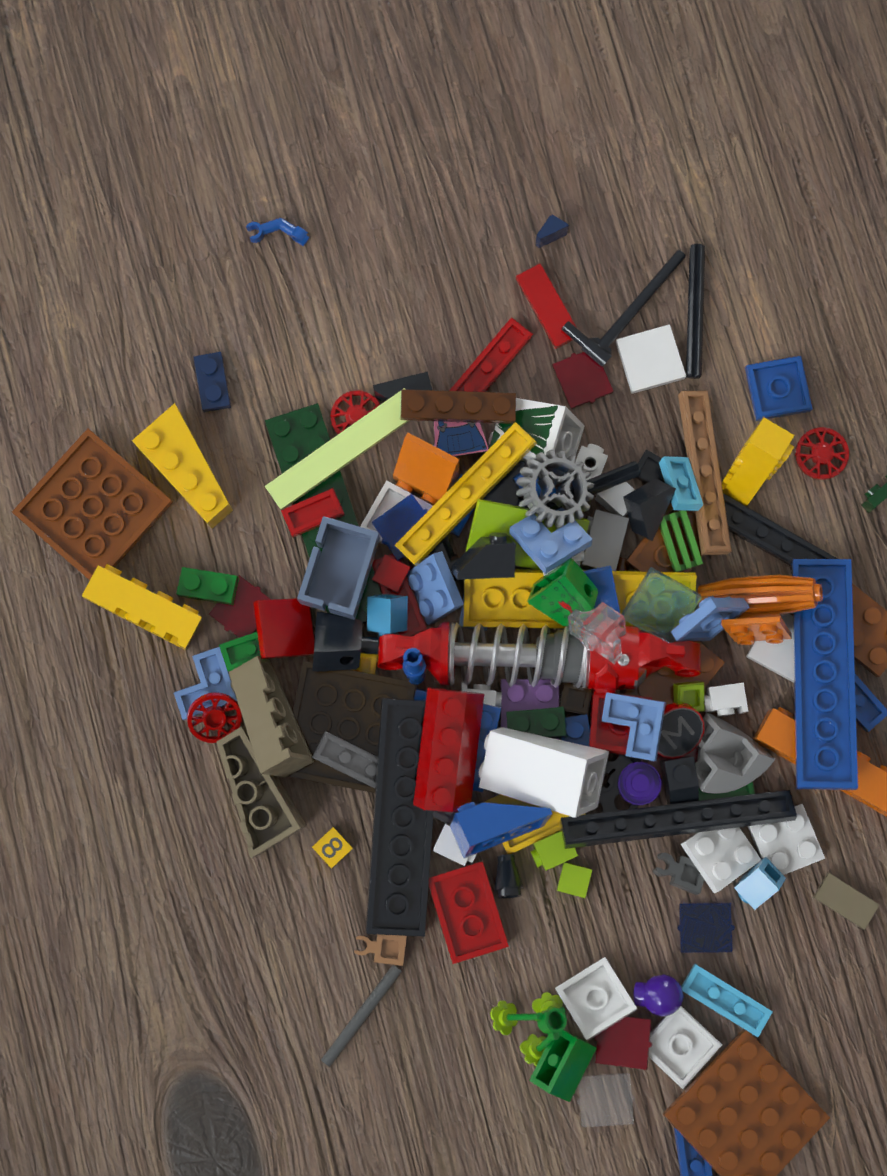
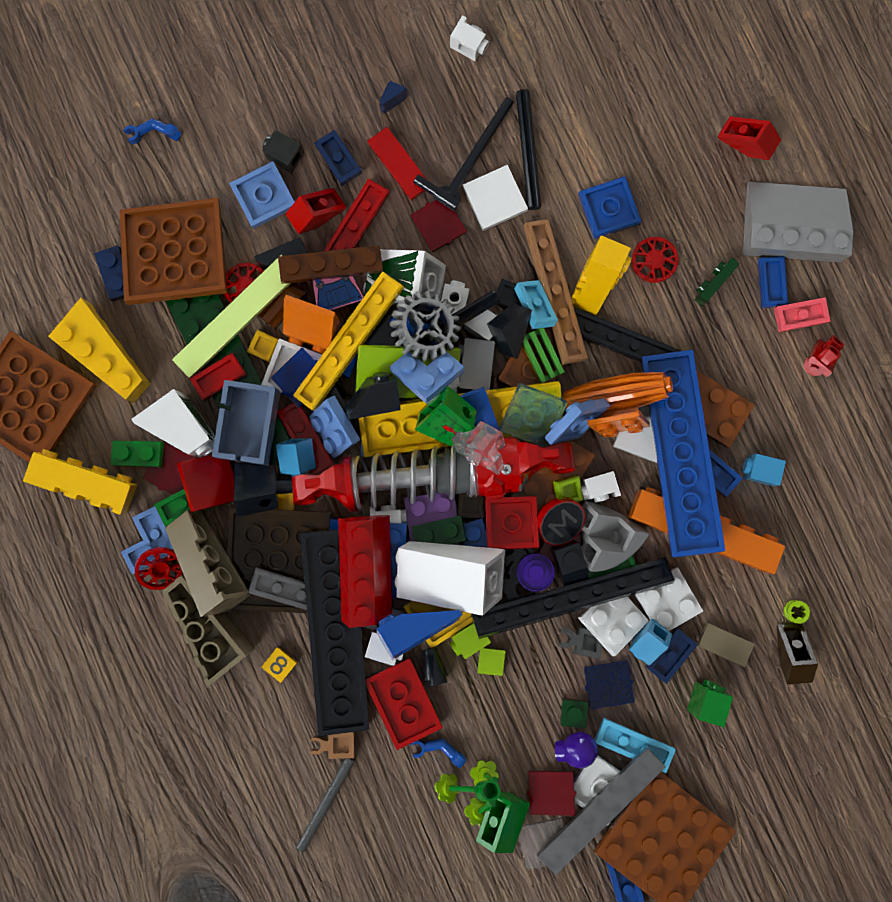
camera: 10 degrees left, 5 degrees up
(261, 559) = (178, 423): none -> white slope
(282, 367) = (172, 251): none -> dark orange plate
(366, 486) = (263, 346): none -> yellow tile
(389, 448) = (274, 311): none -> reddish brown piece
(391, 319) = (262, 194): none -> medium blue plate
(391, 573) = (295, 420): red tile -> none
(414, 666) = (324, 500): blue pin -> none
(420, 273) = (282, 150): none -> pearl dark grey brick
(447, 344) = (315, 210): none -> red slope
(480, 290) = (338, 157): none -> dark blue plate
(507, 969) = (455, 756): none -> blue arm
(596, 998) = (523, 761): white plate -> none
(644, 719) = (530, 516): medium blue plate -> none
(645, 181) = (468, 39): none -> white brick
(660, 953) = (573, 713): none -> dark green plate
(677, 1068) = (601, 810): none -> flat silver tile
(782, 904) = (671, 660): none -> dark blue plate
(819, 961) = (710, 702): none -> green brick

